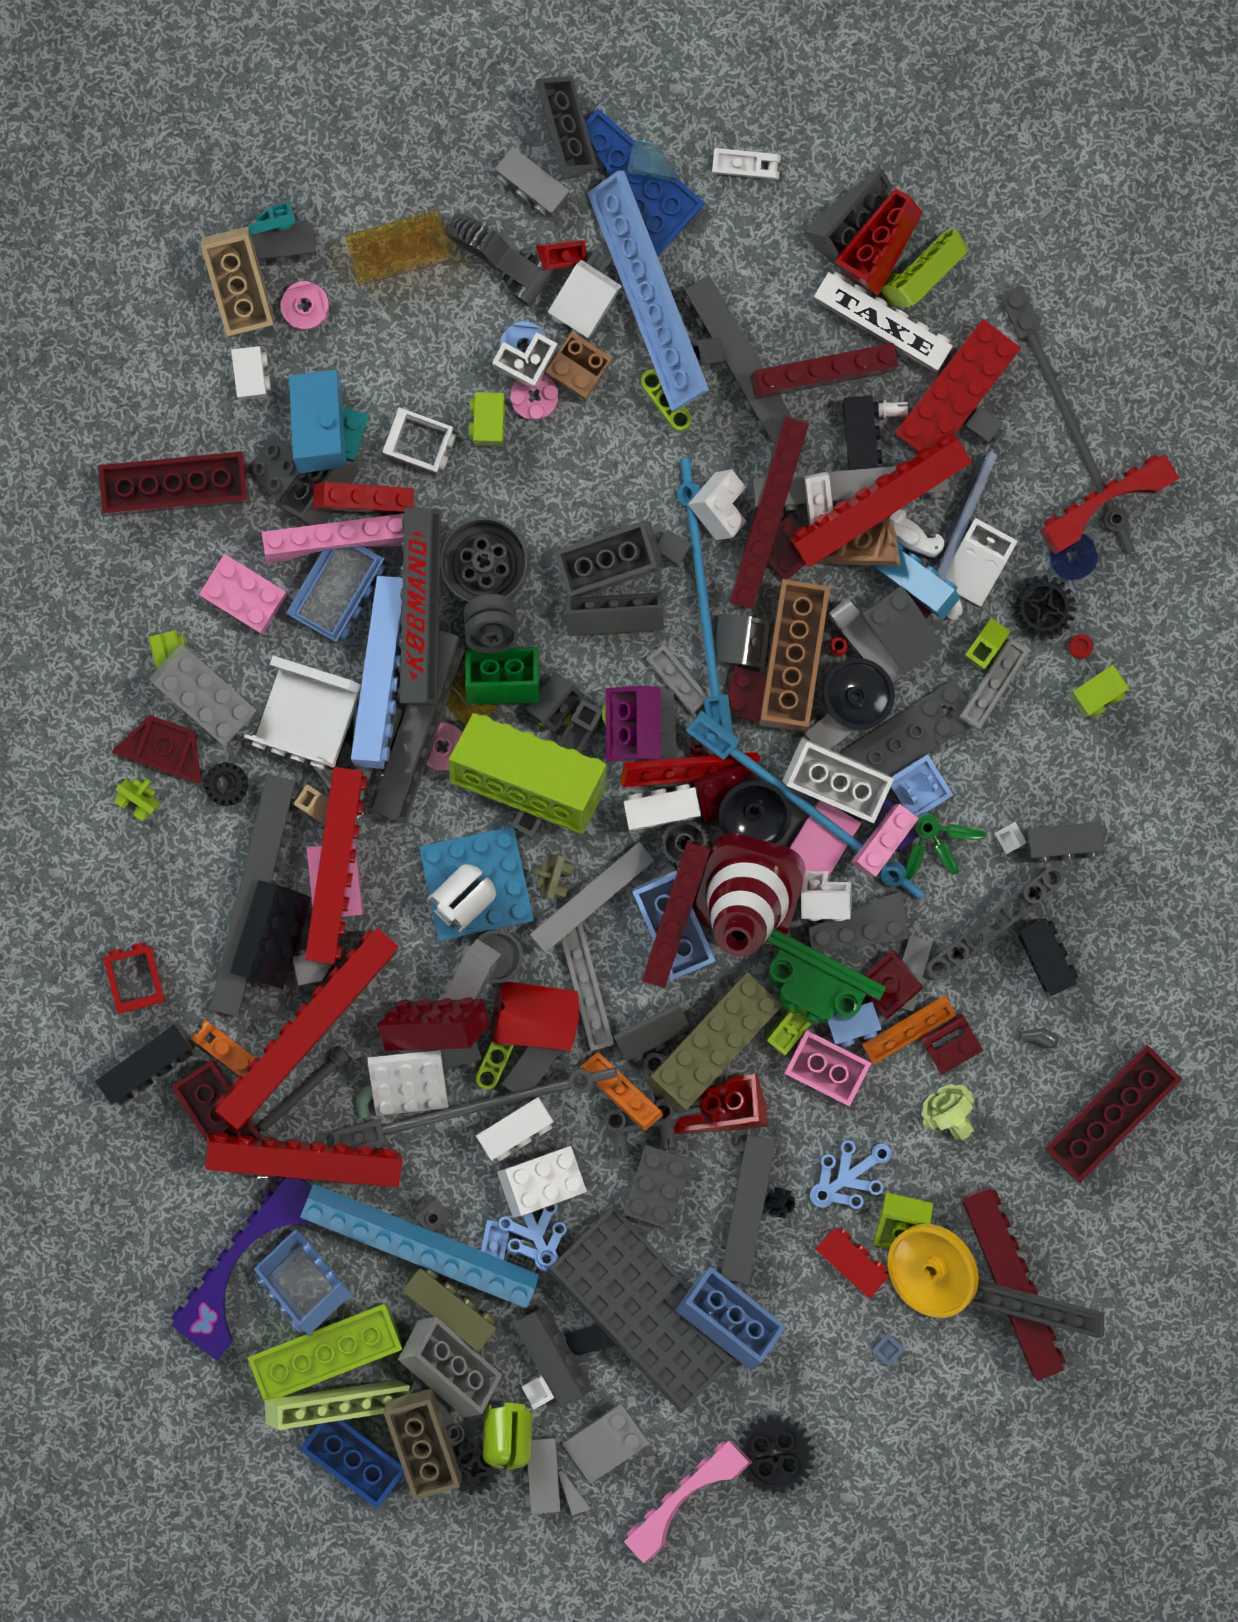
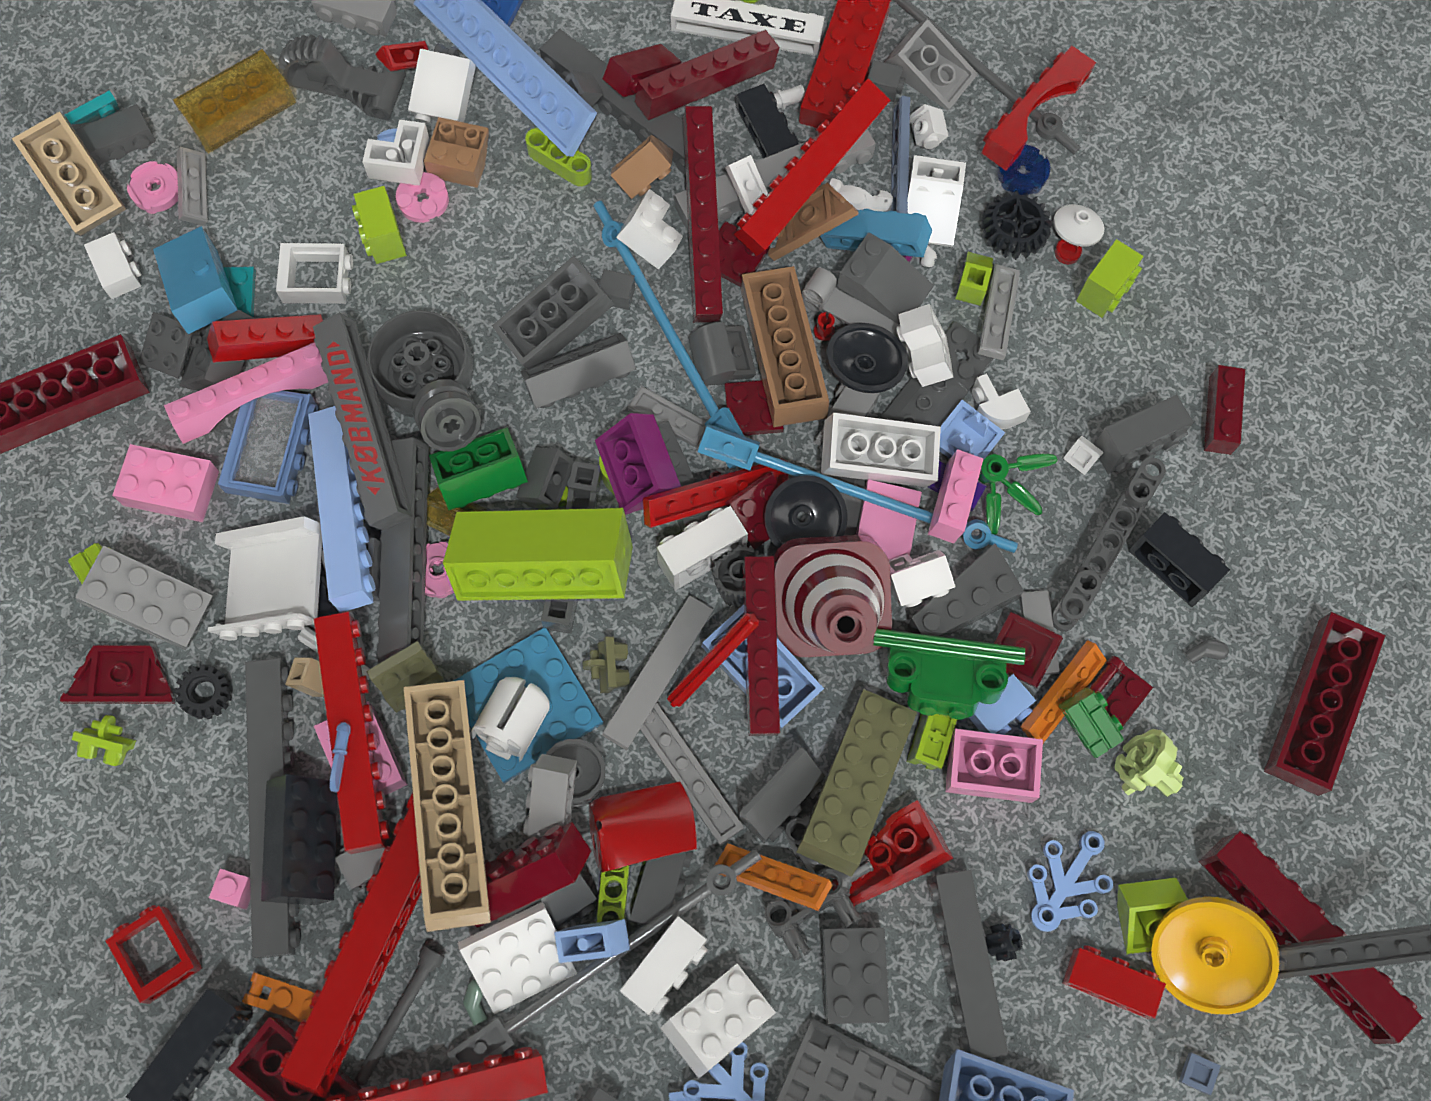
camera: 25 degrees left, 15 degrees down
(207, 951) = (231, 889): none -> bright pink brick
(324, 881) = (343, 731): none -> medium blue piece
(337, 317) = (192, 186): none -> light grey tile
(391, 834) = (404, 669): none -> olive plate
(392, 952) = (445, 806): none -> tan brick
(467, 1091) = (592, 941): none -> light blue brick
(634, 909) = (713, 659): none -> red axle
(733, 449) = (642, 166): none -> medium nougat slope
(768, 347) = (630, 67): none -> dark red brick
(916, 700) = (925, 345): none -> white brick
(918, 1061) = (1092, 722): none -> green brick
(955, 774) = (1001, 410): none -> white brick
(1004, 487) = (928, 126): none -> white brick
(1032, 424) = (932, 65): none -> light grey slope
(1092, 633) = (1078, 225): none -> white dish
(1147, 841) = (1224, 409): none -> dark red brick

